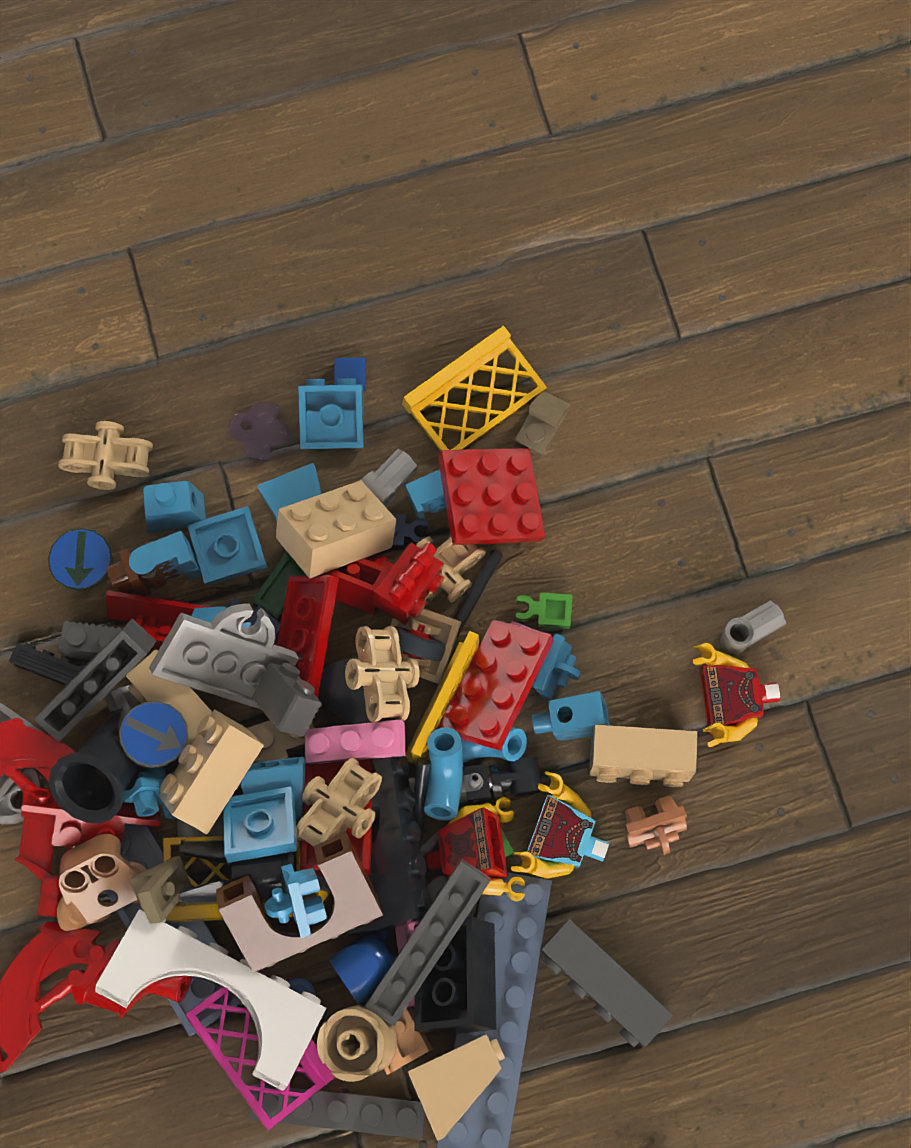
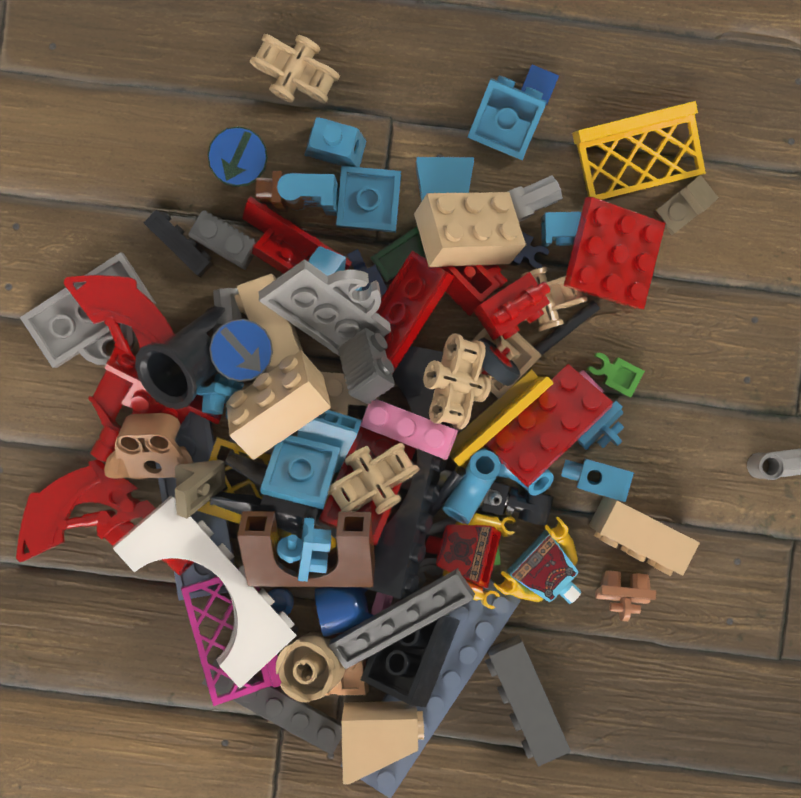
camera: 20 degrees right, 15 degrees up
(95, 680) = (210, 277): dark grey brick -> none
(264, 430) = (442, 106): plate -> none
(731, 695) = (737, 515): torso -> none

